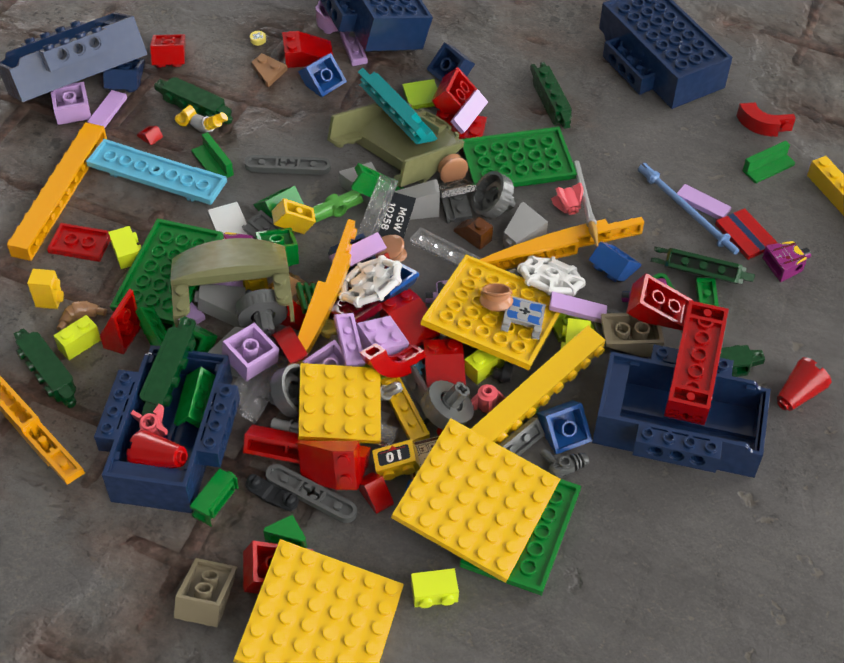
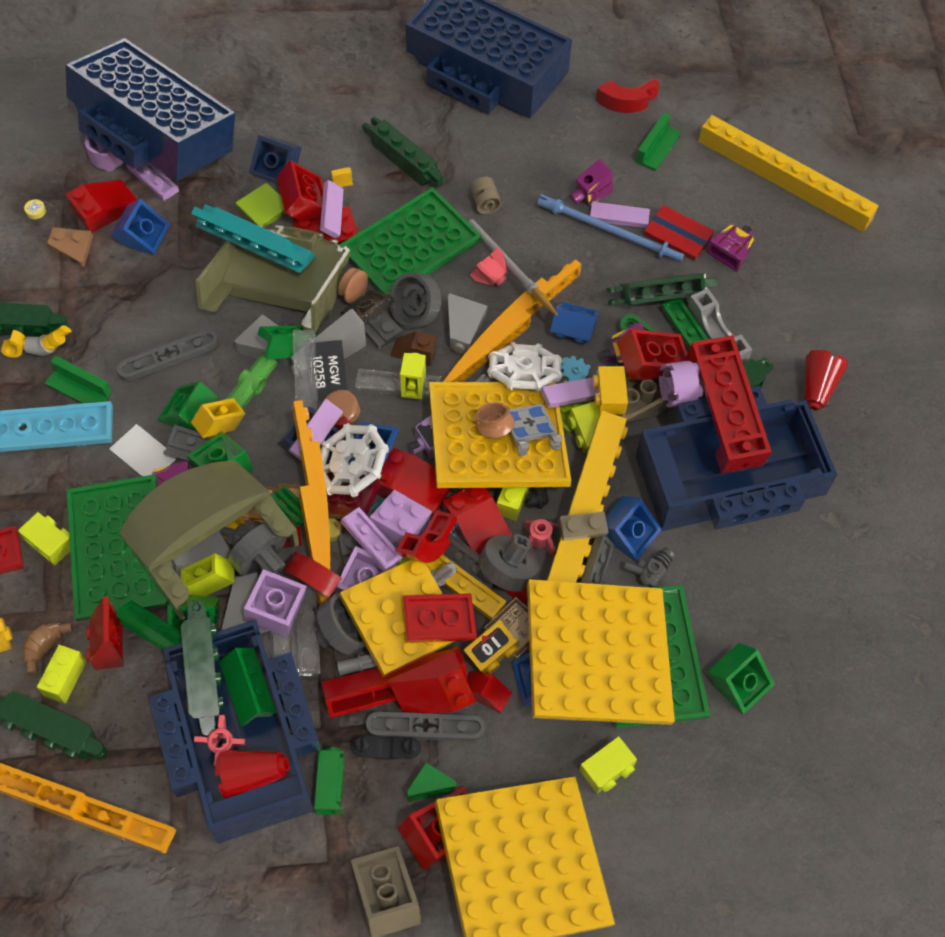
camera: 30 degrees left, 10 degrees up
(216, 316) = (208, 575): none -> neon yellow brick
(365, 416) = (438, 618): none -> red tile
(454, 243) = (413, 375): none -> neon yellow brick
(493, 95) = (342, 177): none -> yellow tile
(521, 402) = (583, 526): none -> dark tan plate
(588, 577) = (741, 677): none -> green slope
(594, 295) = (574, 368): none -> medium azure piece
(598, 147) = (485, 195): none -> dark tan wheel
(606, 314) = (611, 389): none -> yellow brick
(666, 329) = (680, 383): none -> lavender brick
(692, 170) = (593, 184): none -> magenta torso
(729, 297) = (707, 314): none -> light grey arch

